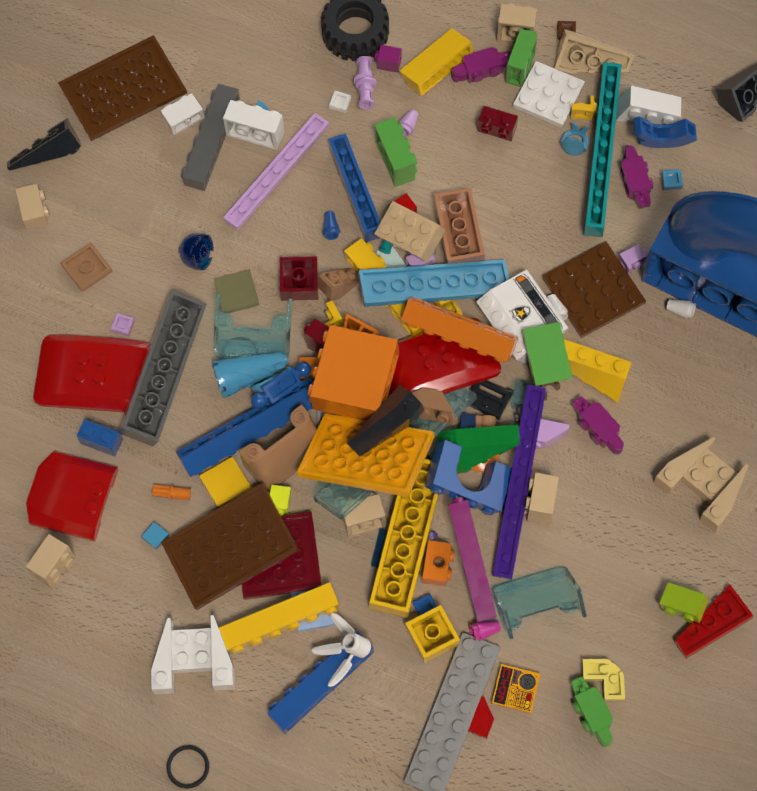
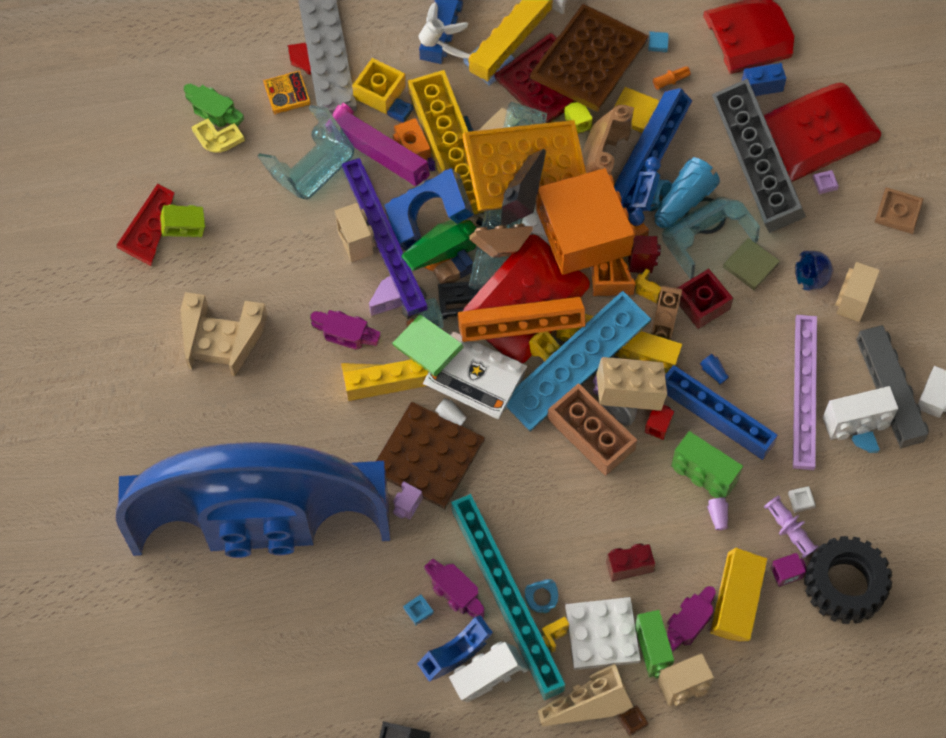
camera: 145 degrees right, 5 degrees down
(179, 212) = (856, 291): none -> tan brick

